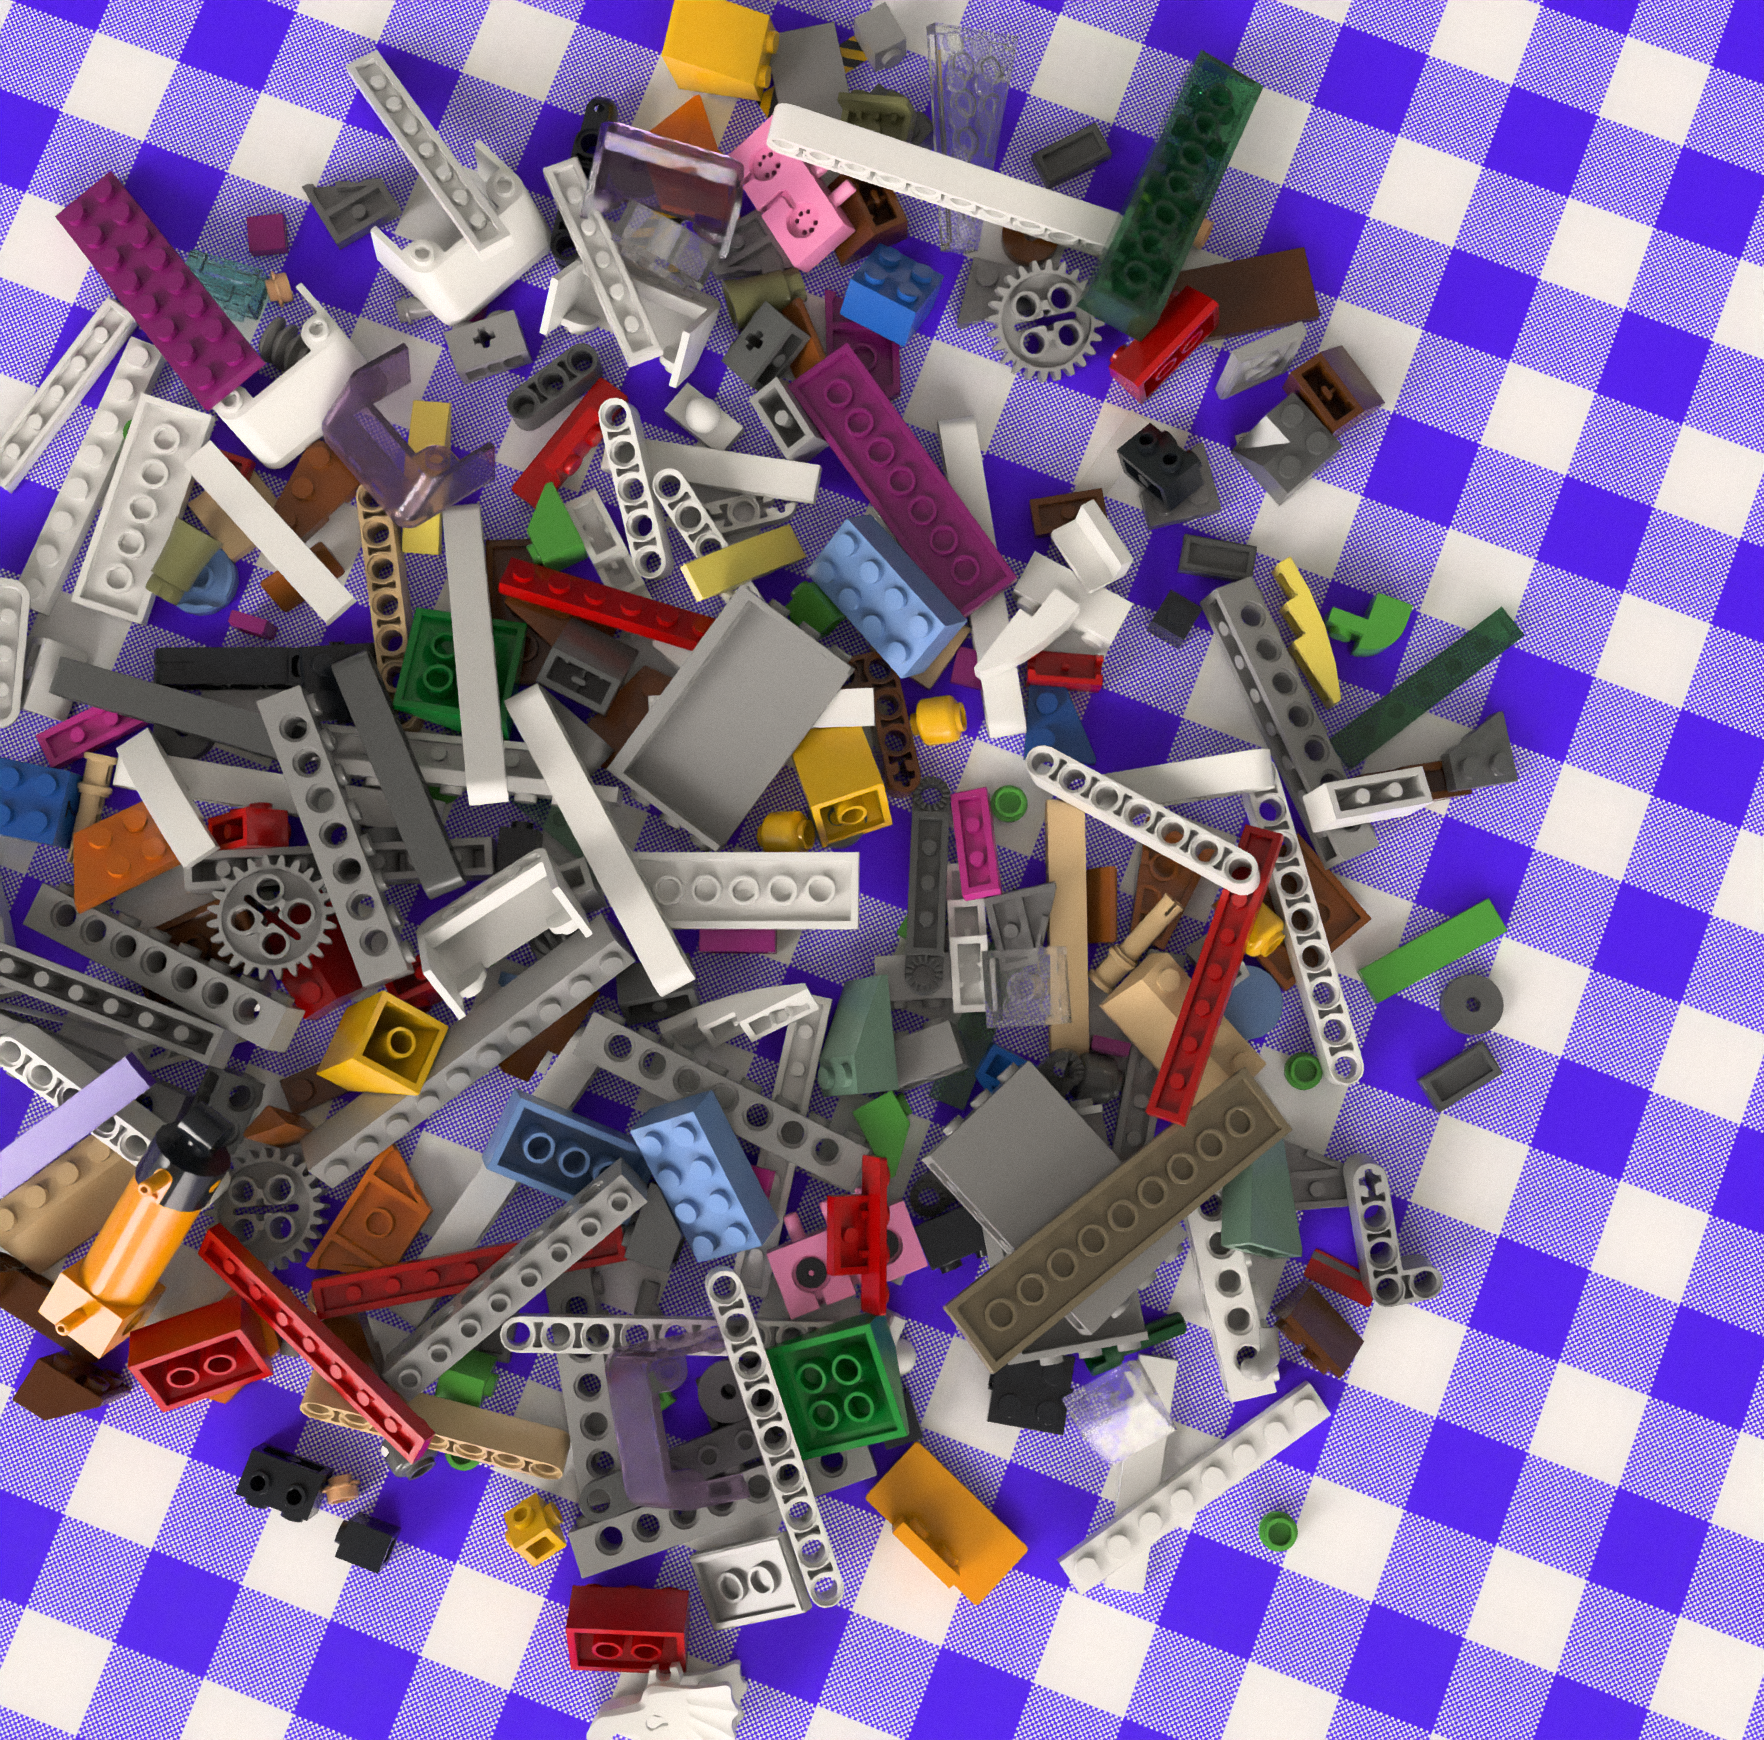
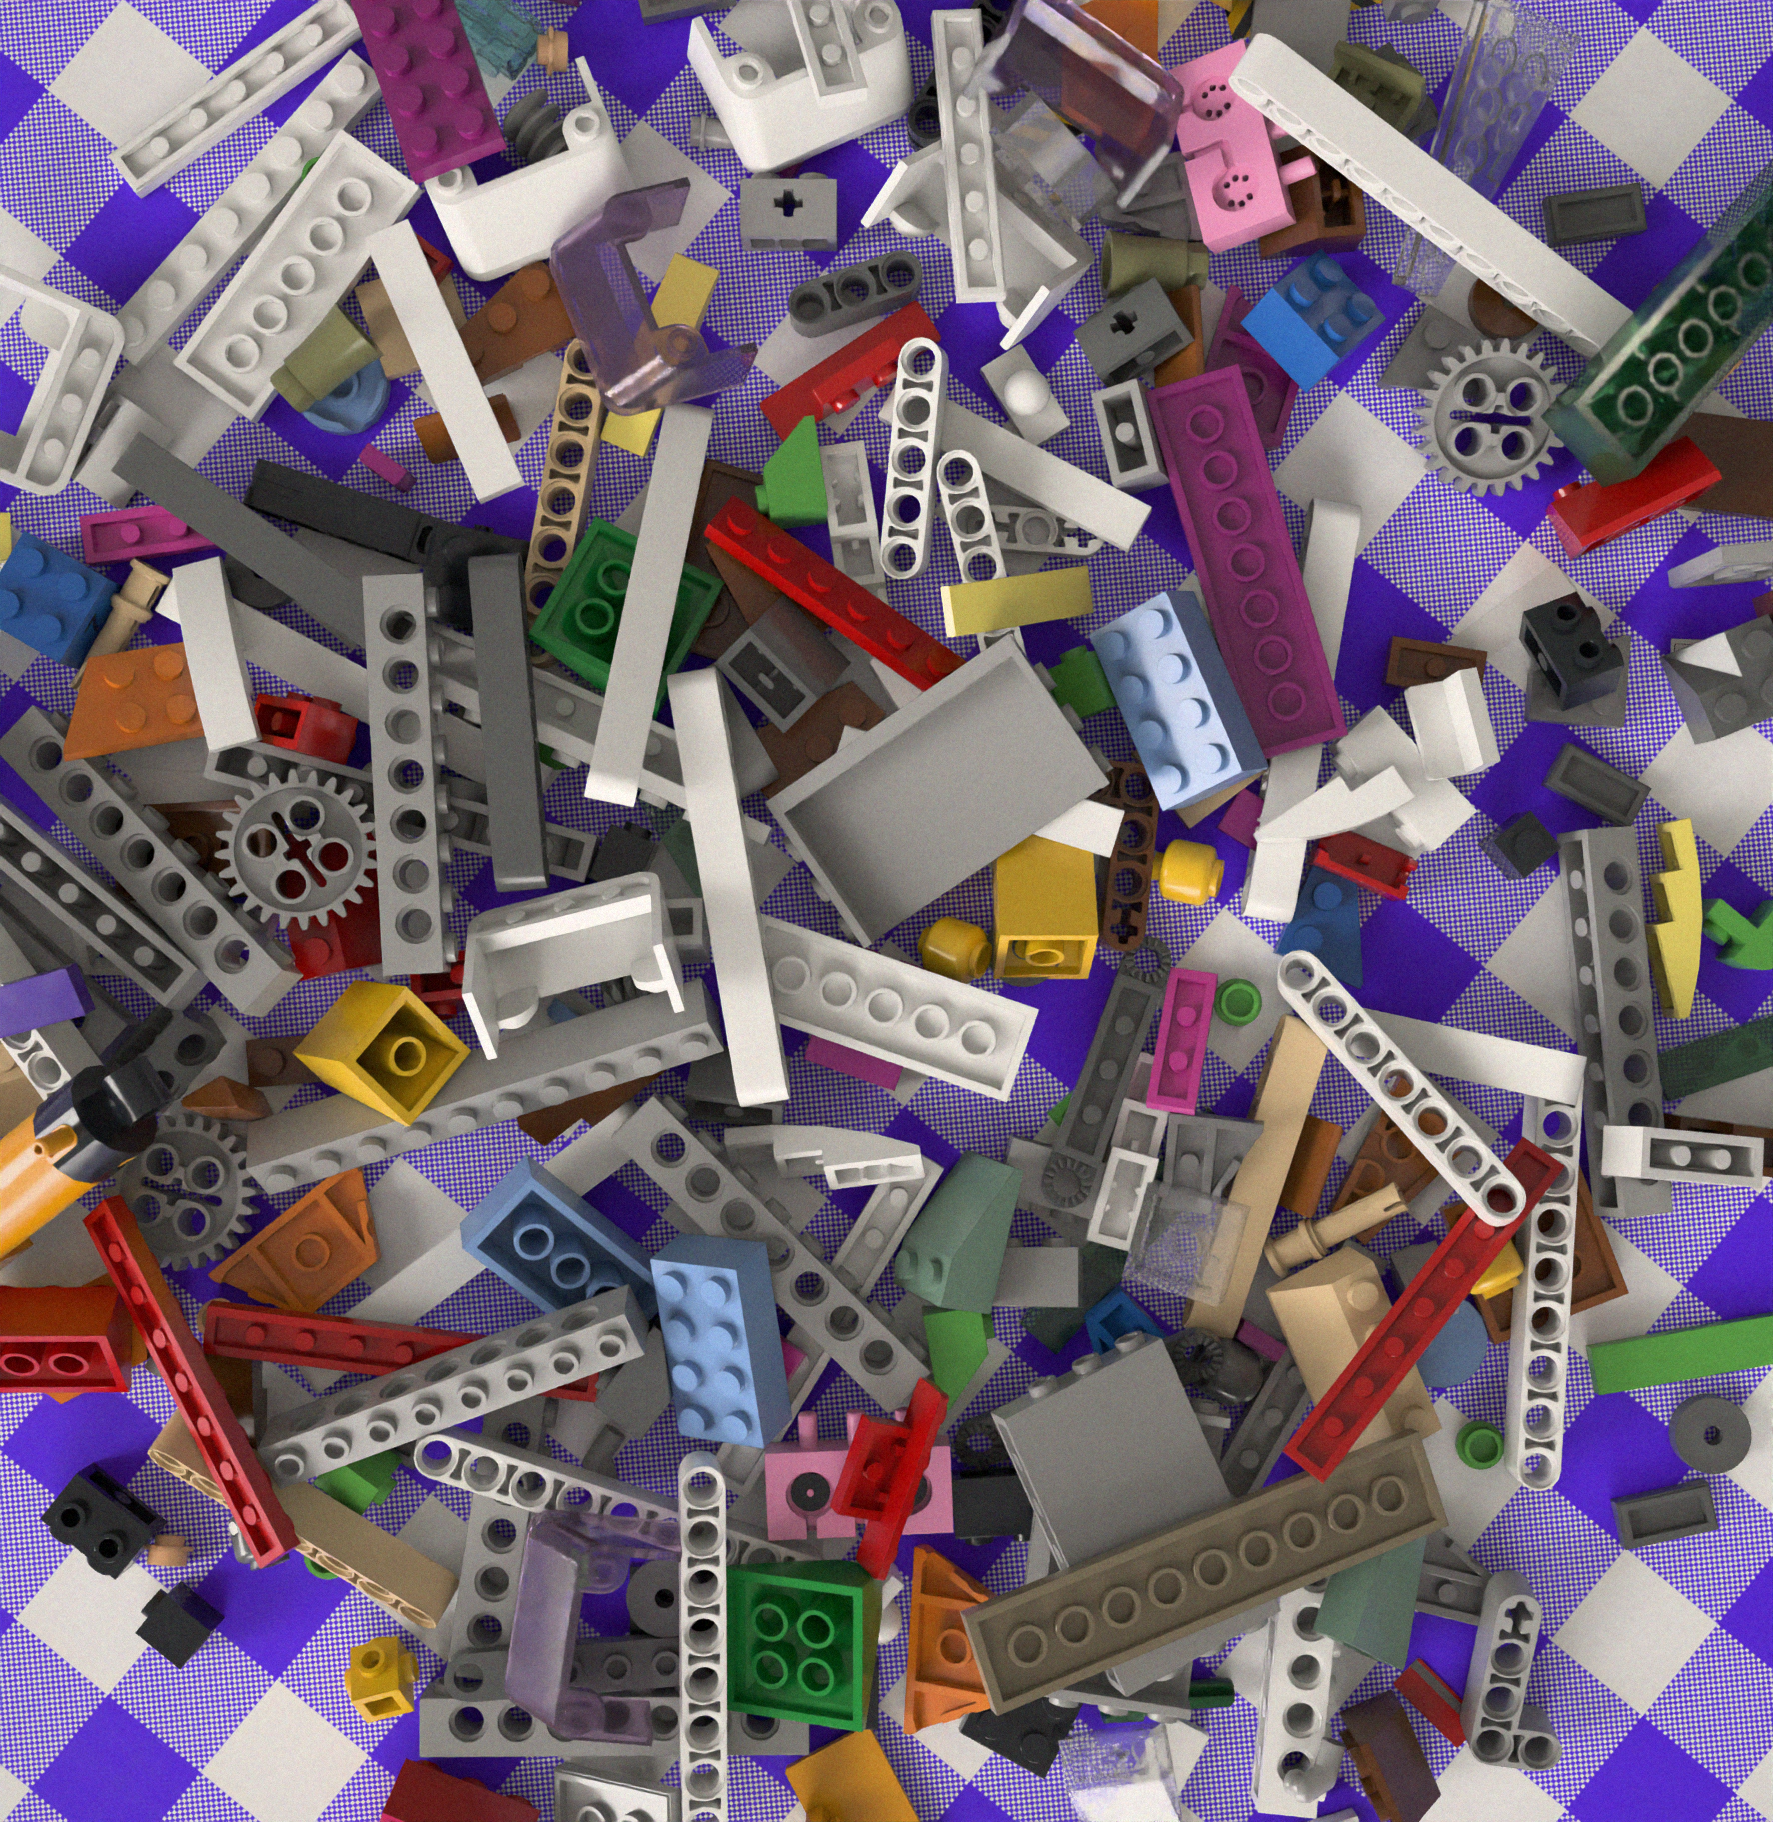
camera: 10 degrees right, 5 degrees up
(955, 1371) = (940, 1664): none -> orange wing

